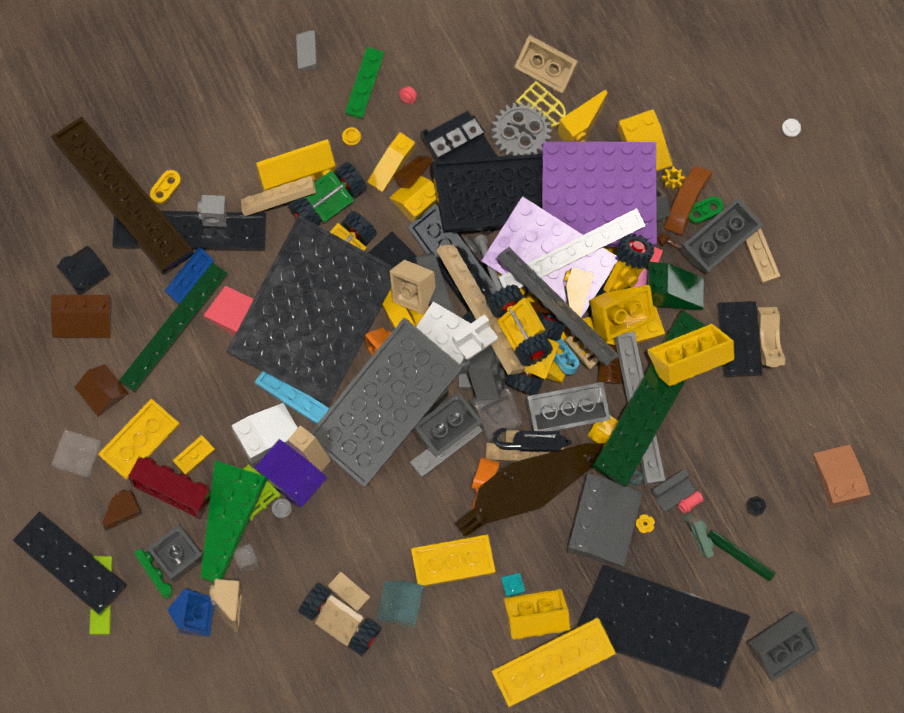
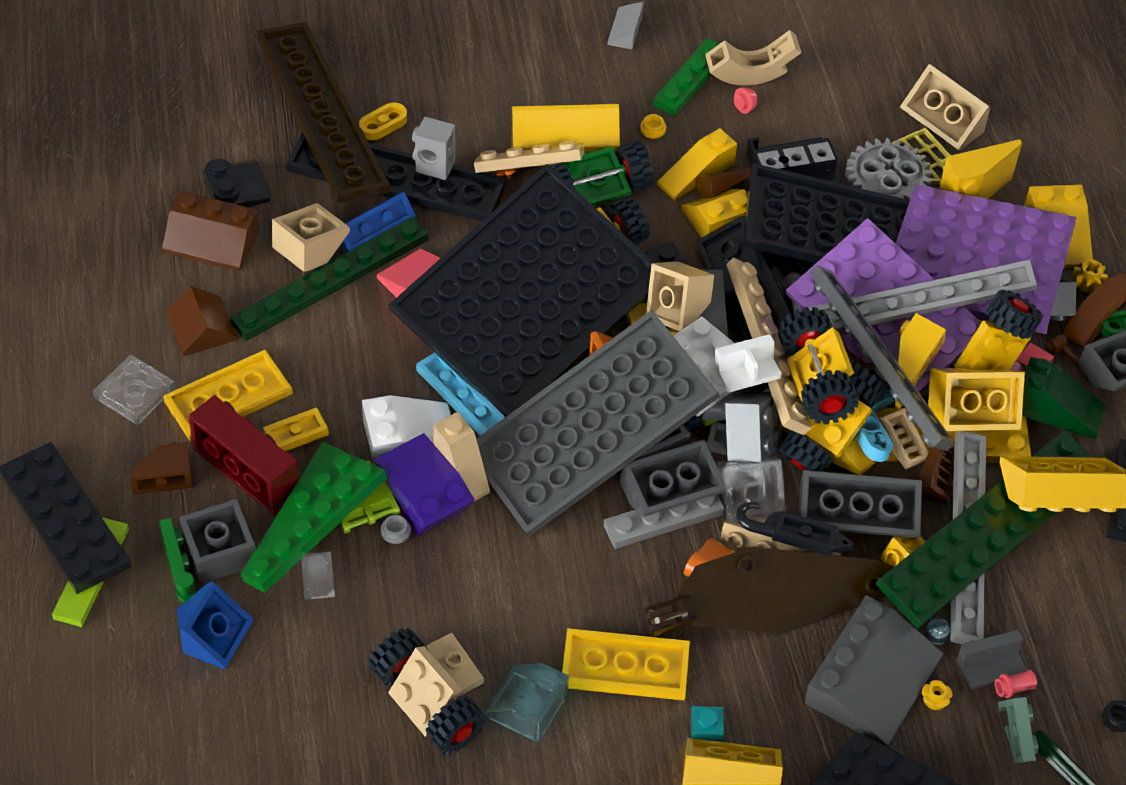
camera: 20 degrees right, 20 degrees down
(150, 303) = (308, 236): none -> tan slope
(227, 597) = (268, 613): tan slope -> none
(407, 63) = (755, 66): none -> tan arch

